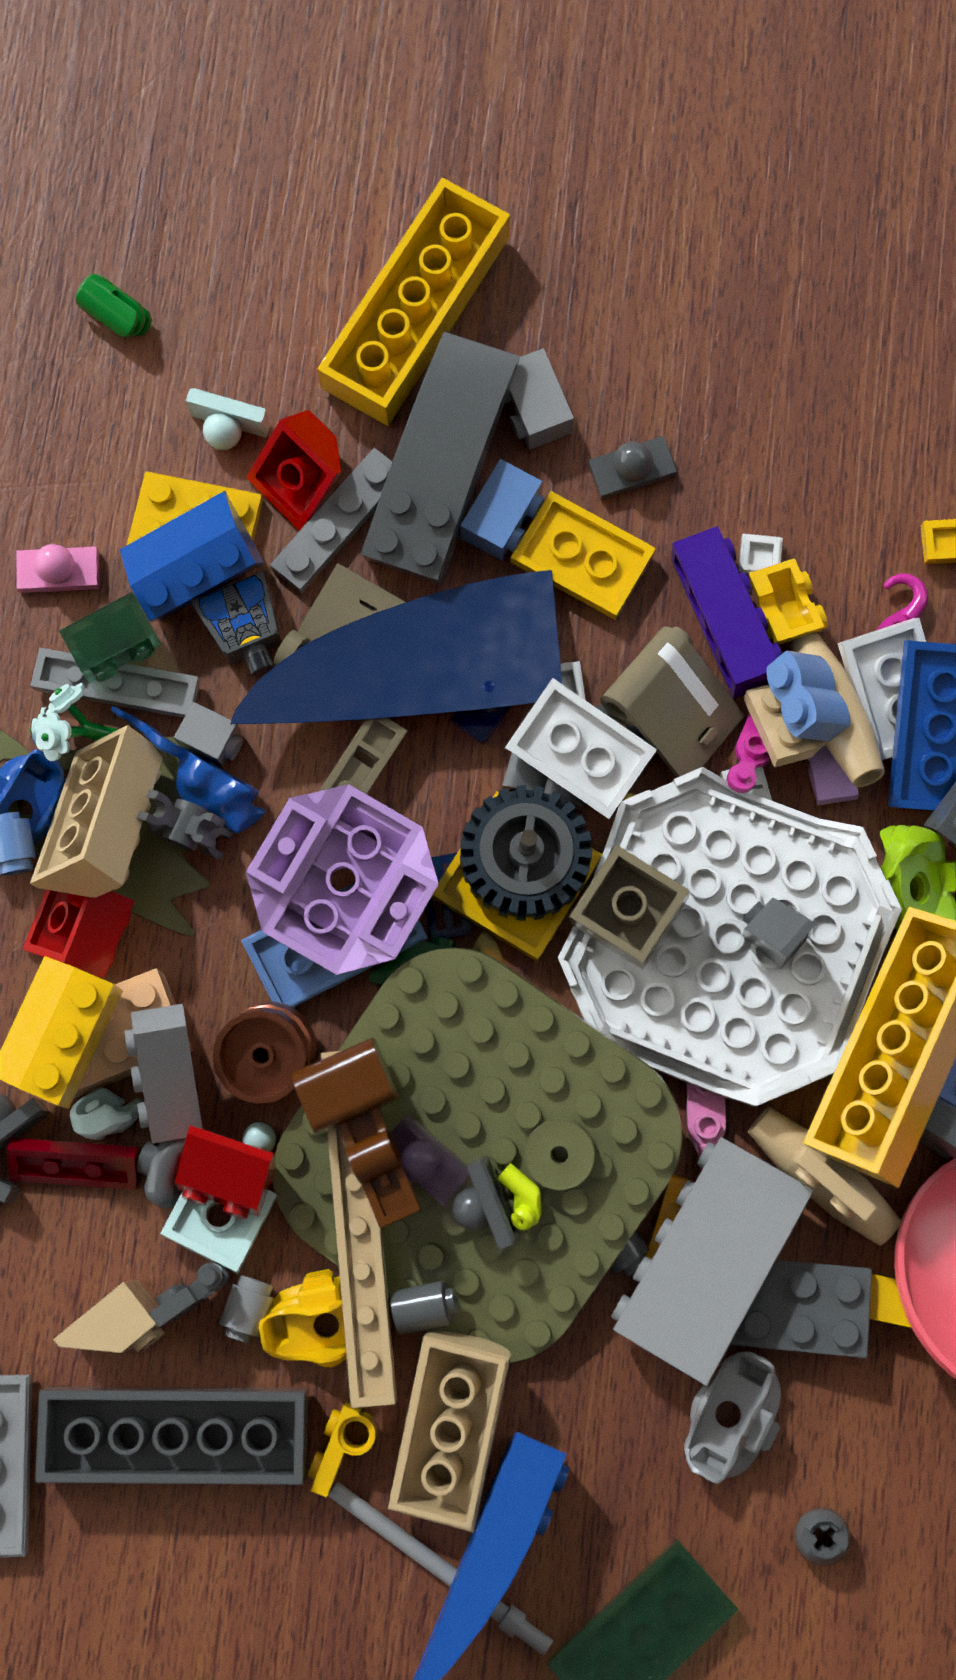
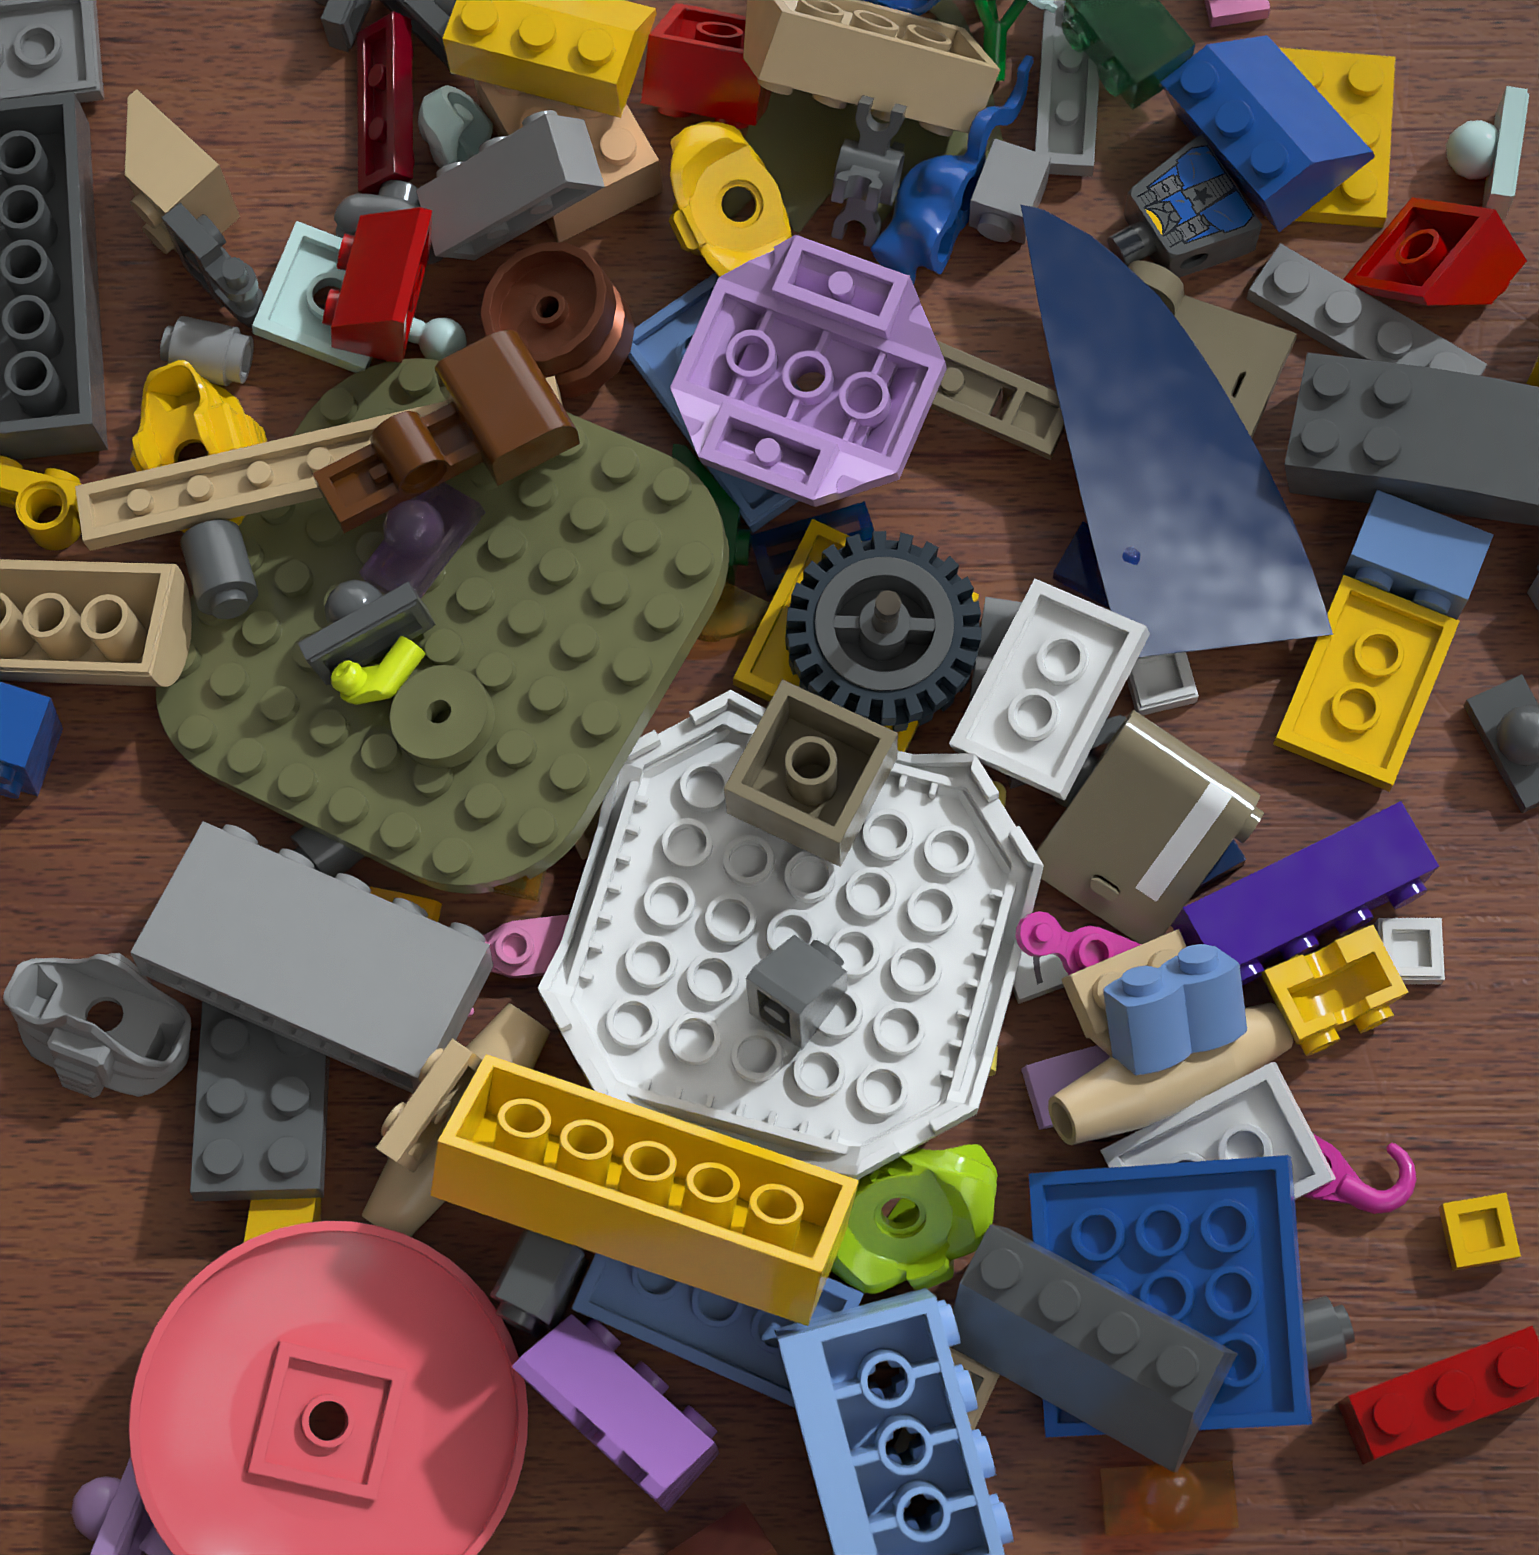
camera: 85 degrees right, 5 degrees down
(165, 930) = (703, 167): none -> yellow piece

